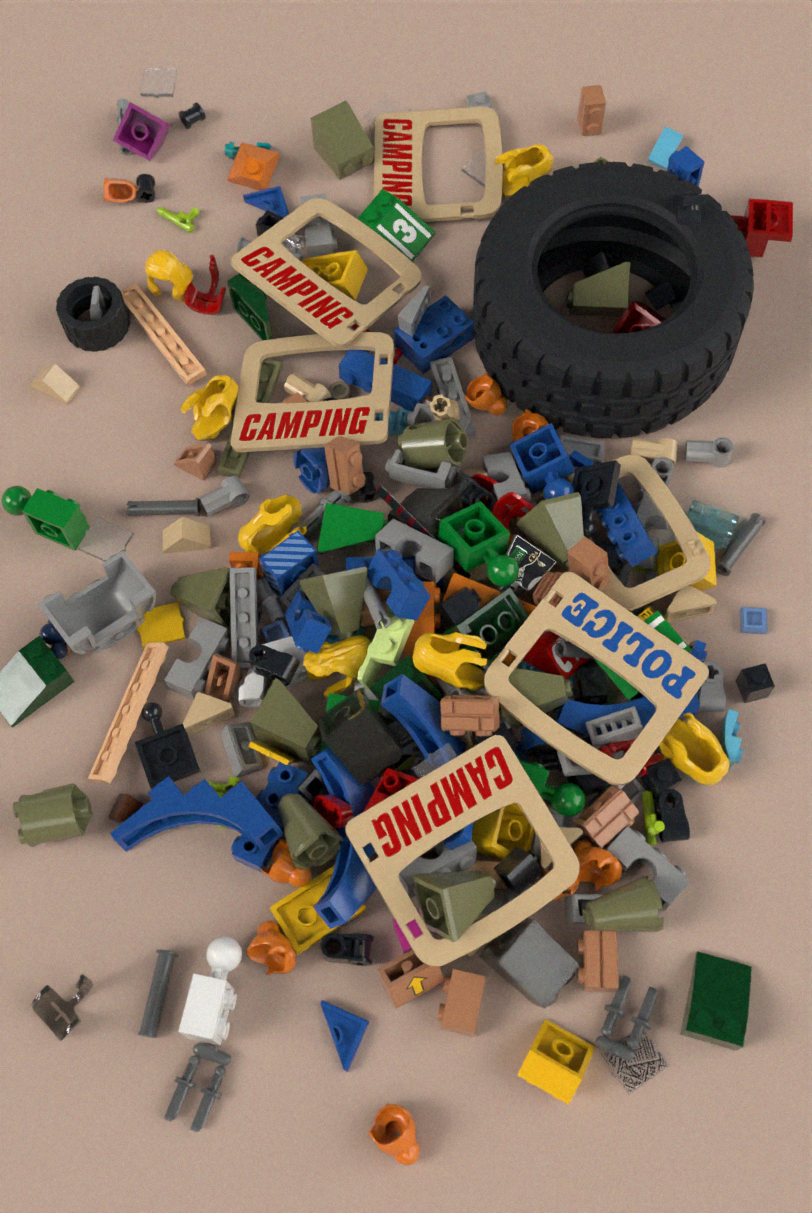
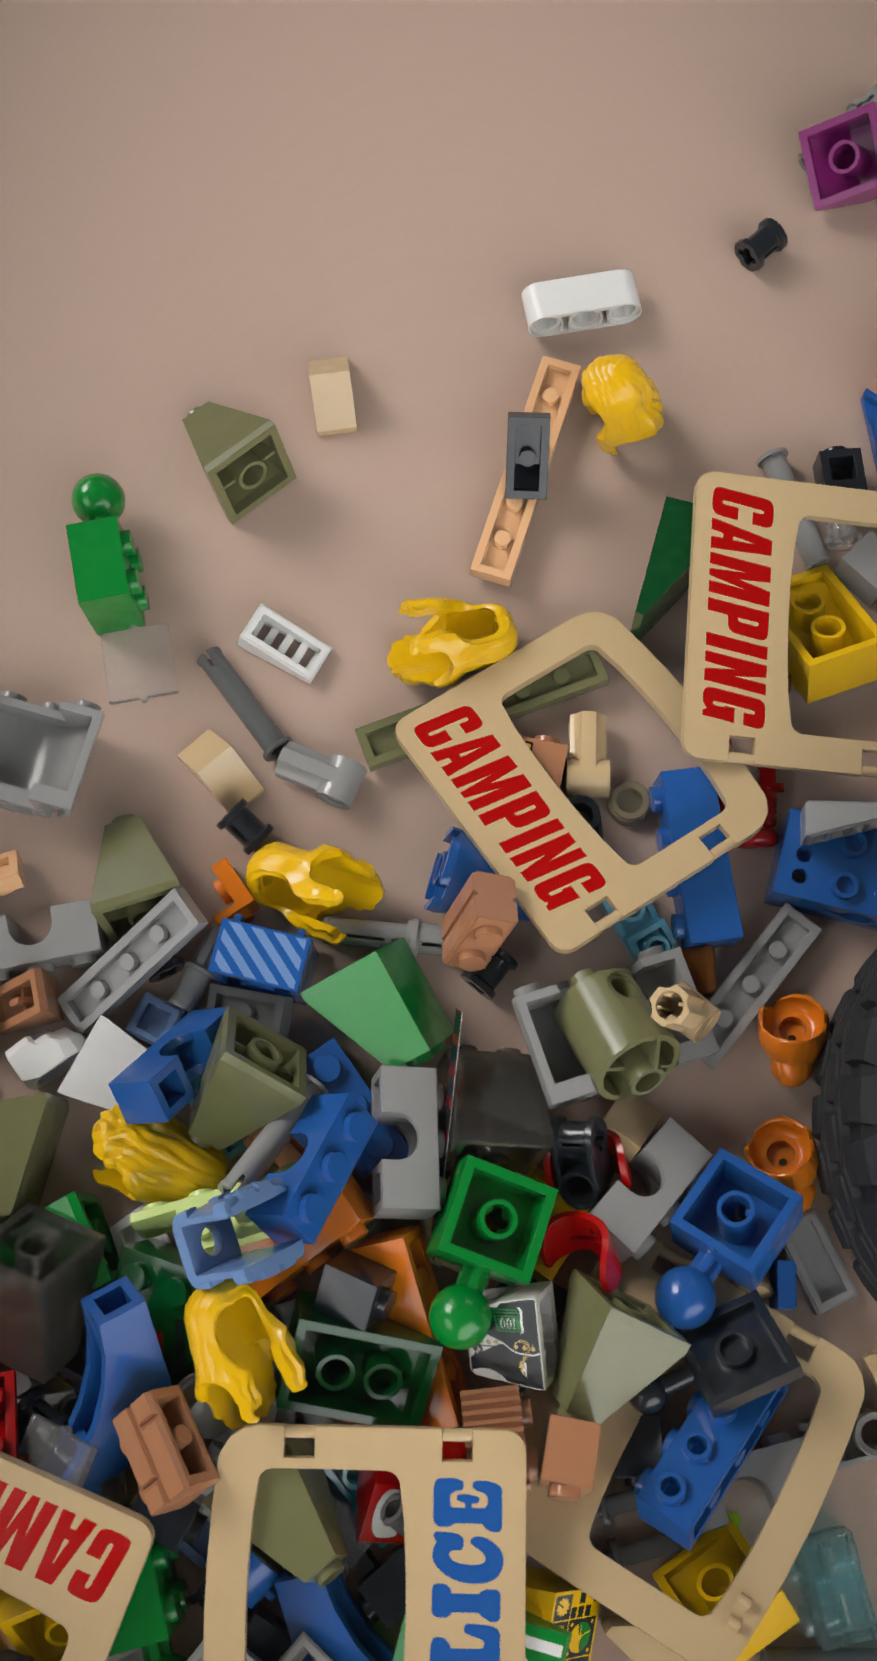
camera: 55 degrees right, 10 degrees up
(47, 435) = (239, 456): none -> olive slope
(94, 334) = (477, 310): black tyre -> none
(98, 305) = (488, 355): light grey slope -> none
(110, 260) = (581, 303): none -> white beam
(119, 190) = (722, 211): rock -> none
(145, 485) = (278, 624): none -> white slope
(158, 323) = (527, 455): none -> slope
(162, 625) = (60, 848): yellow piece -> none
(181, 218) = (752, 334): lime hose -> none
(191, 293) = (630, 456): red helmet -> none
(197, 460) = (351, 687): nougat slope -> none
(221, 540) = (245, 826): none -> black bush
(277, 664) = (77, 1077): black piece -> none
(396, 637) = (227, 1259): none -> medium blue piece

